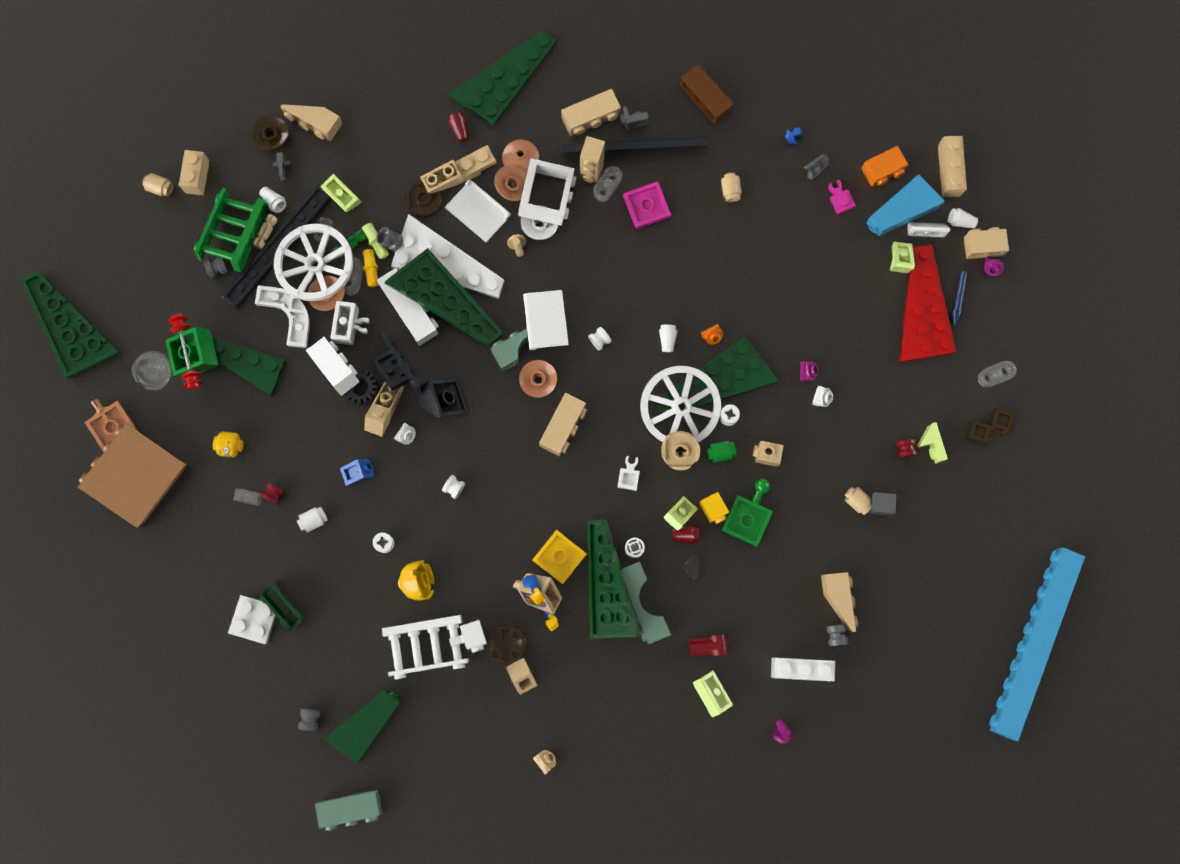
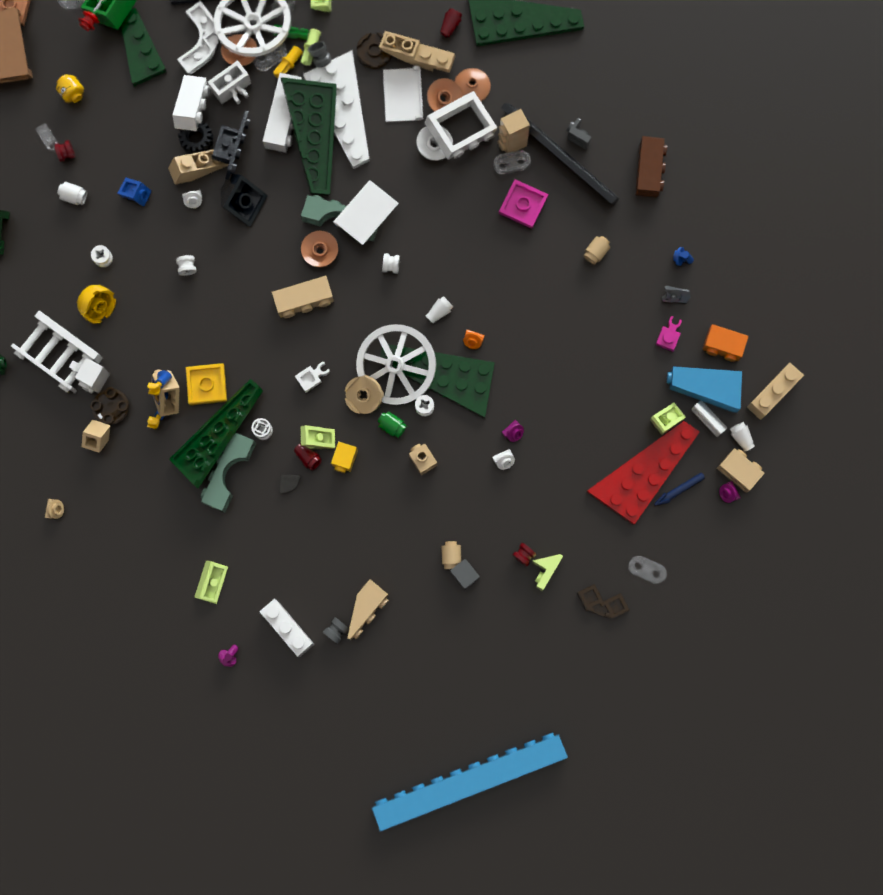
camera: 50 degrees right, 0 degrees up
(517, 242) = (405, 142): tan plate -> none
(591, 112) = (553, 101): tan brick -> none
(711, 646) = (245, 549): dark red piece -> none
(747, 518) = (361, 490): green plate -> none

